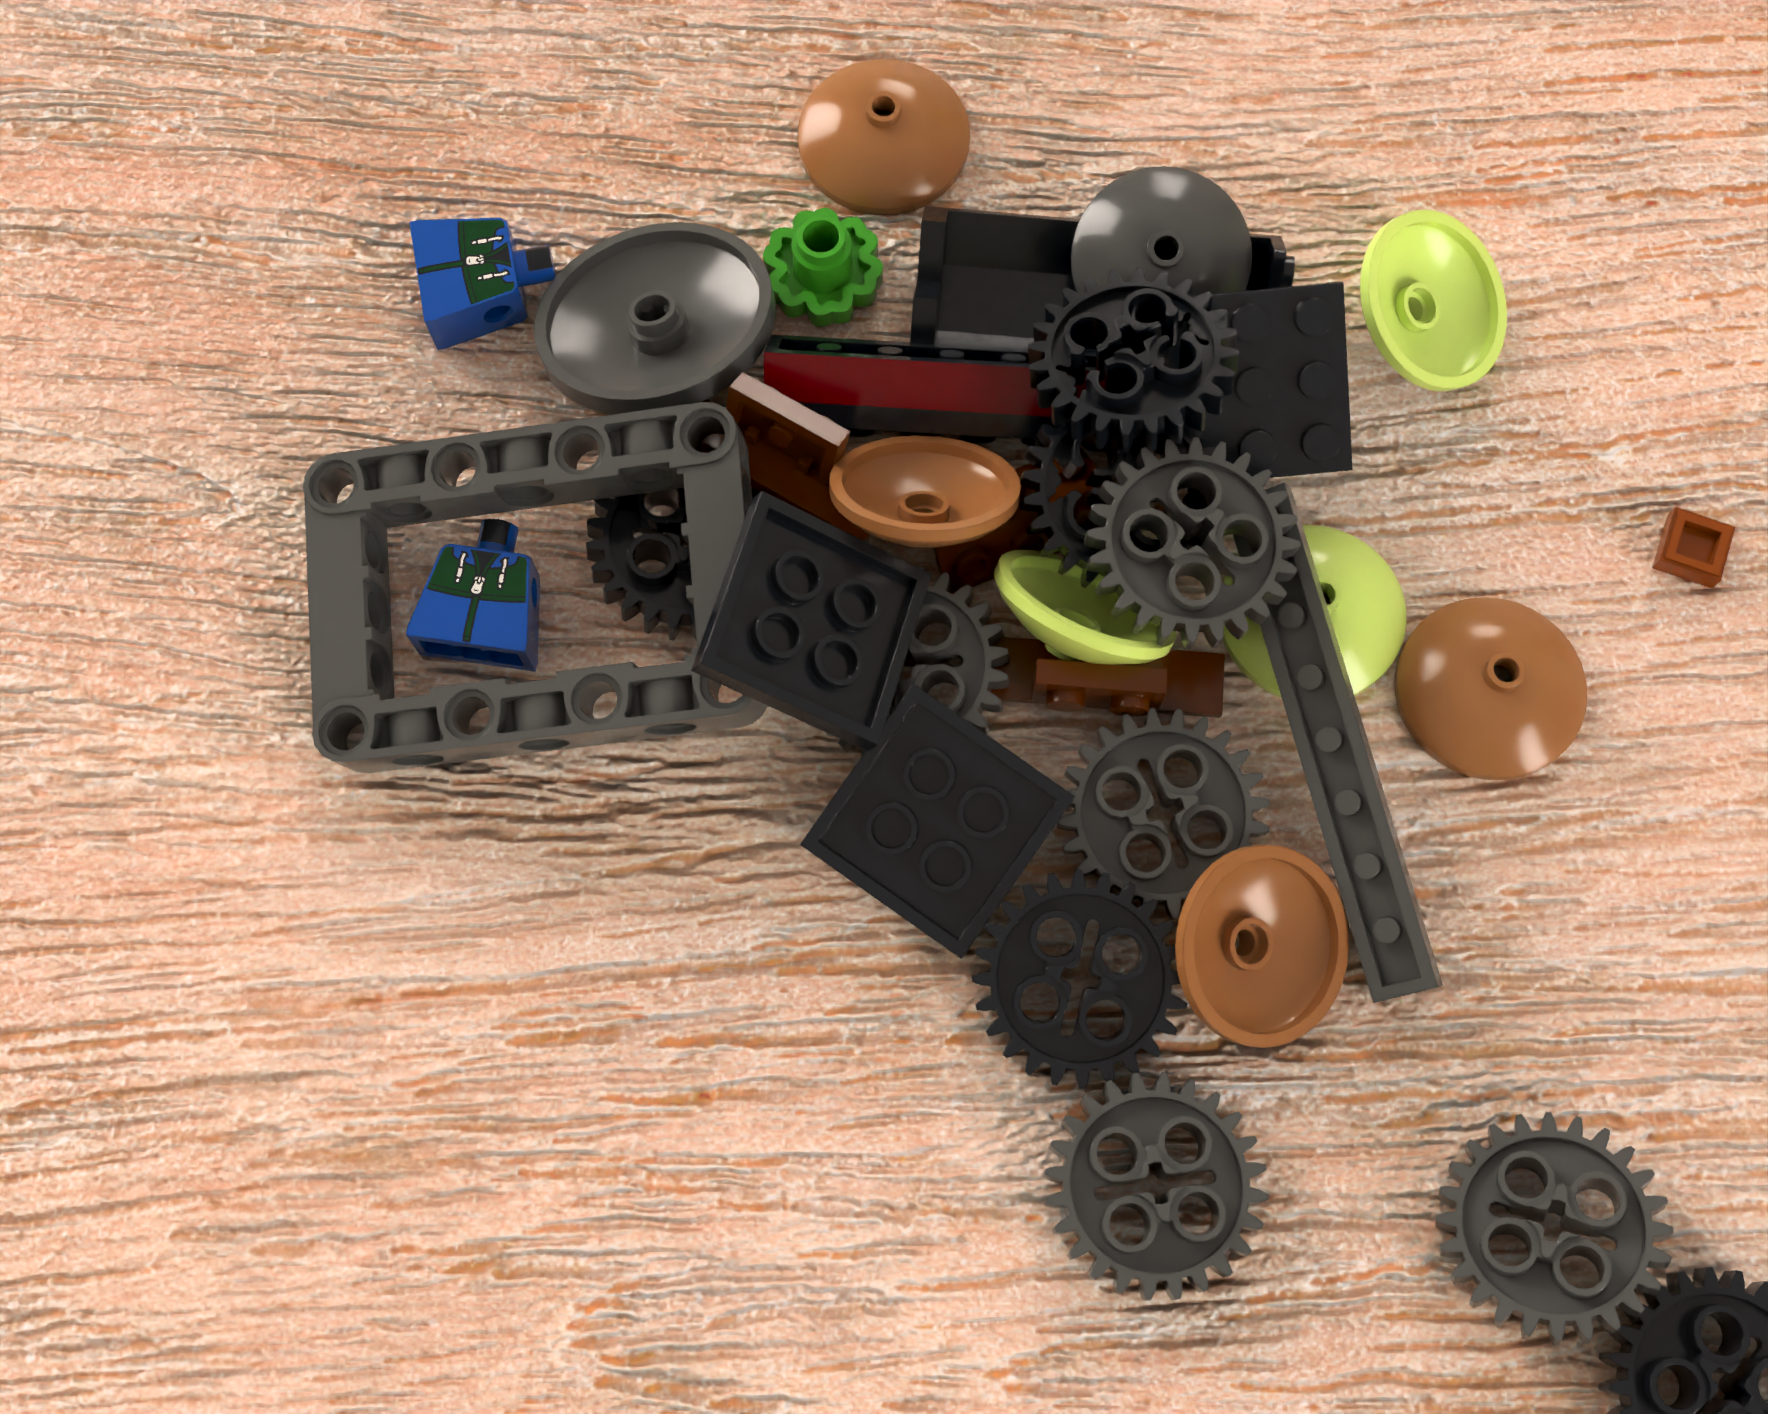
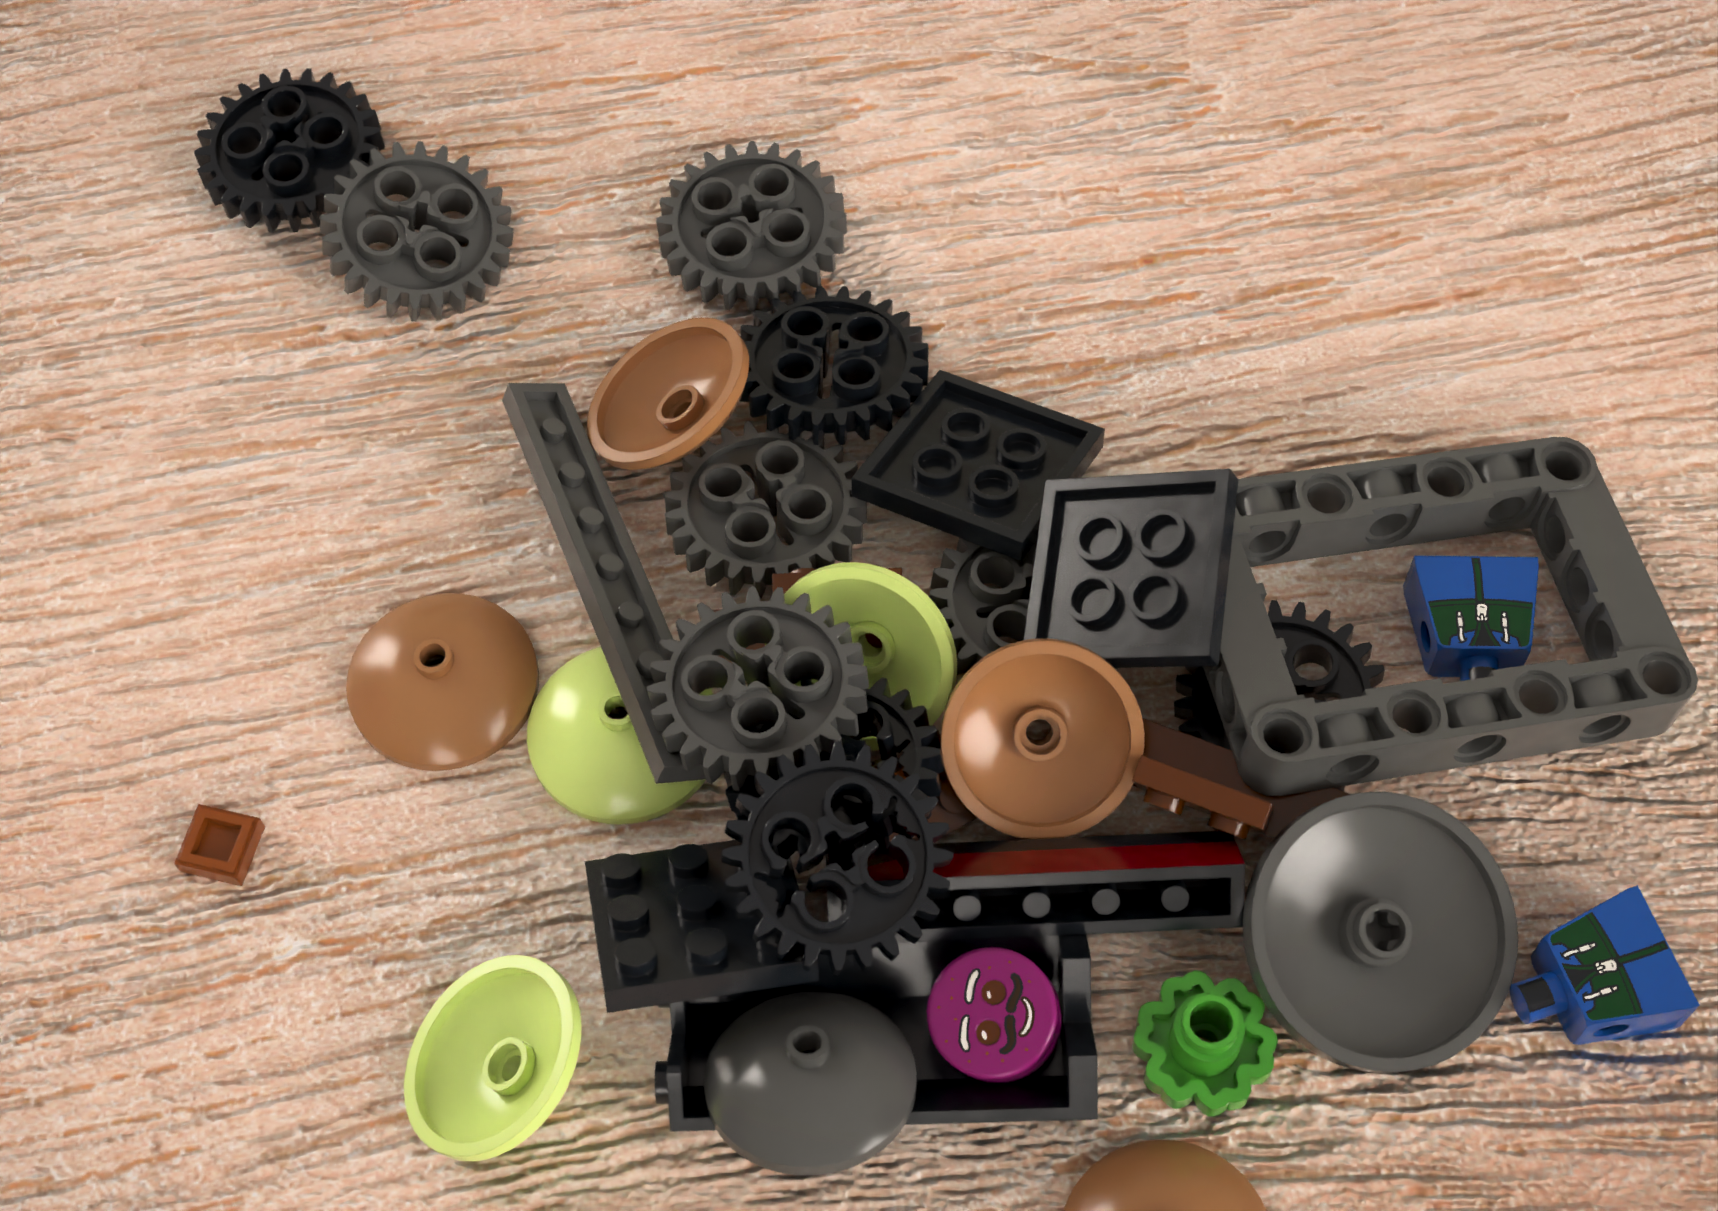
camera: 175 degrees right, 10 degrees down
(998, 286) = (994, 1015): none -> magenta head

